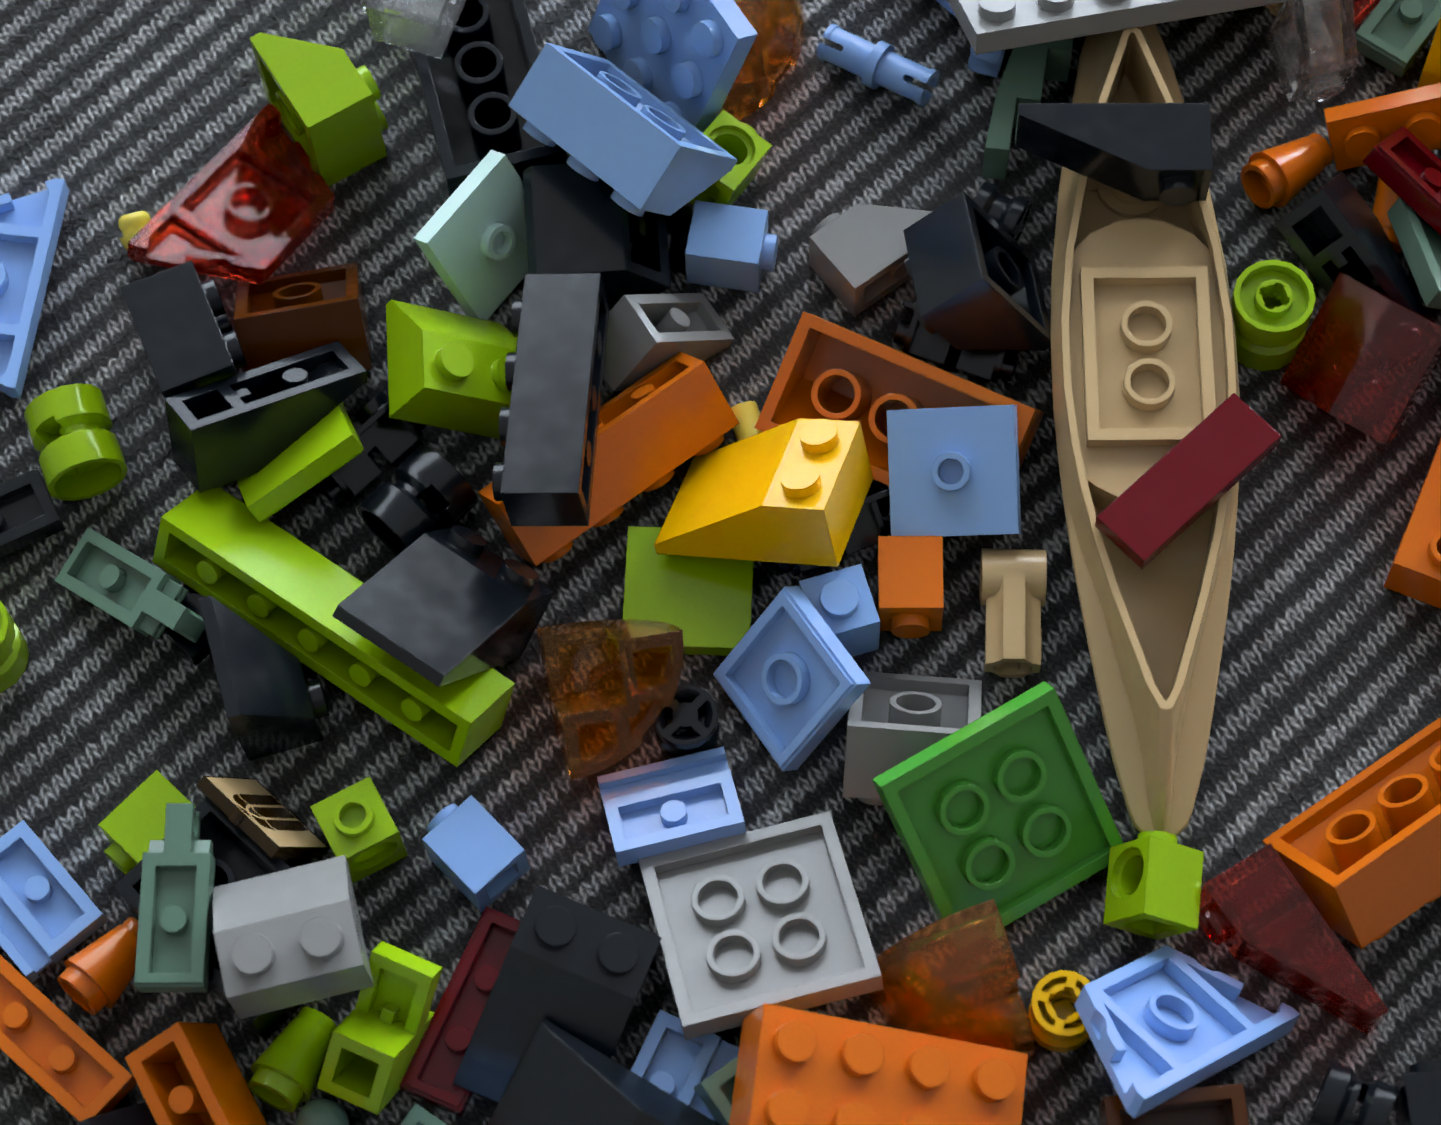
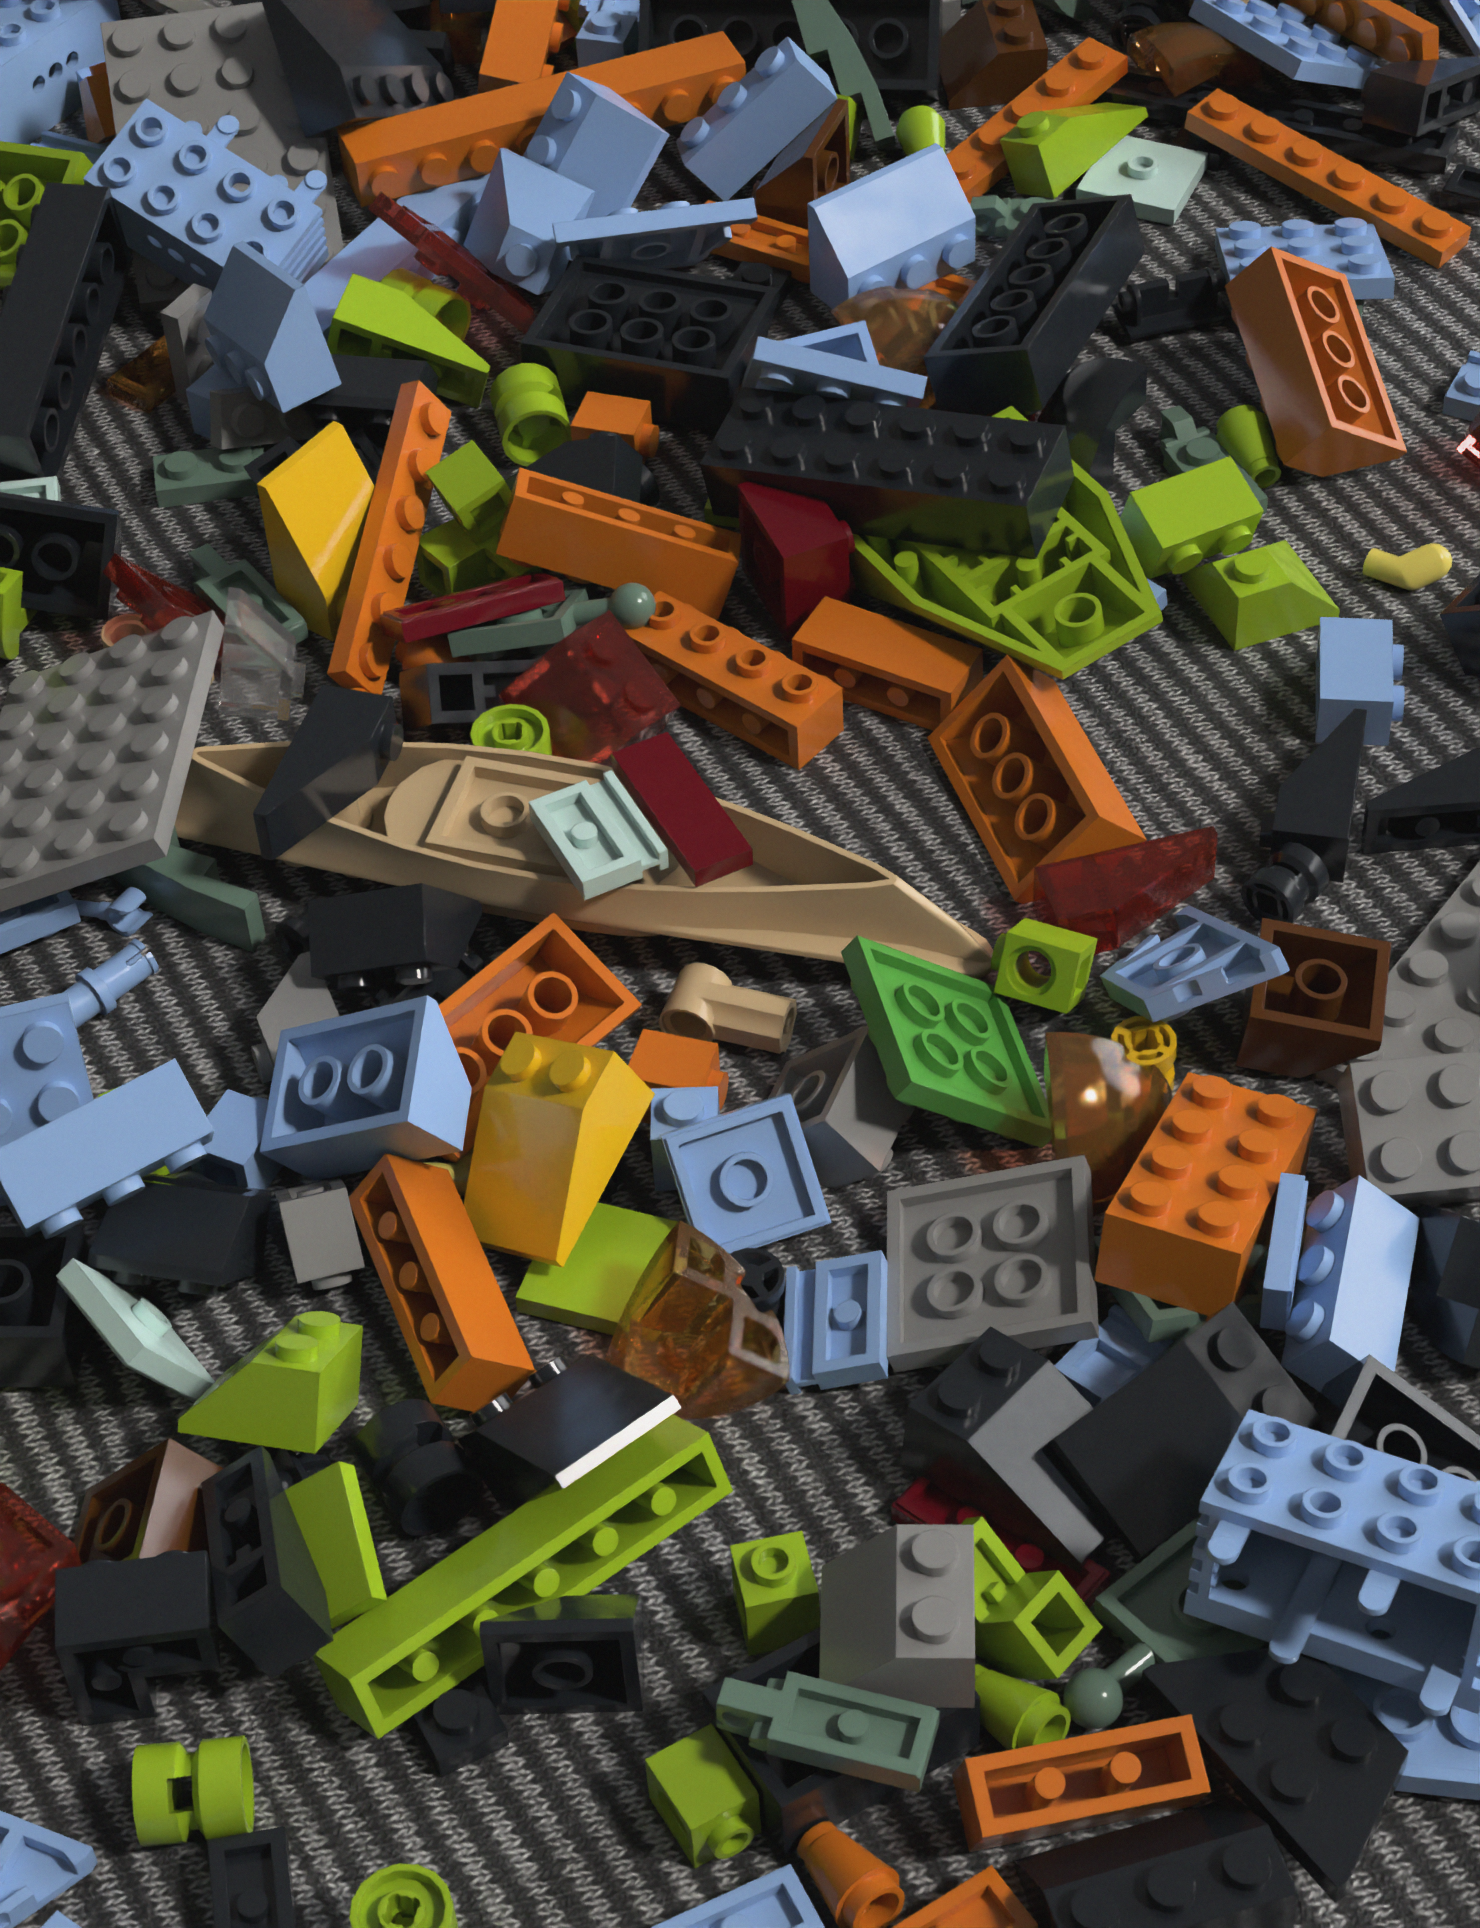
camera: 75 degrees left, 20 degrees down
(128, 588) = (402, 1764): sand green hinge -> none
(262, 817) = (691, 1690): dark brown piece -> none
(475, 852) = (833, 1495): light blue brick -> none
(553, 400) = (382, 1268): black brick -> none
(757, 322) = (365, 1090): none -> light blue slope
(954, 471) = (584, 990): light blue plate -> none
(1118, 414) = (598, 835): none -> light aqua plate

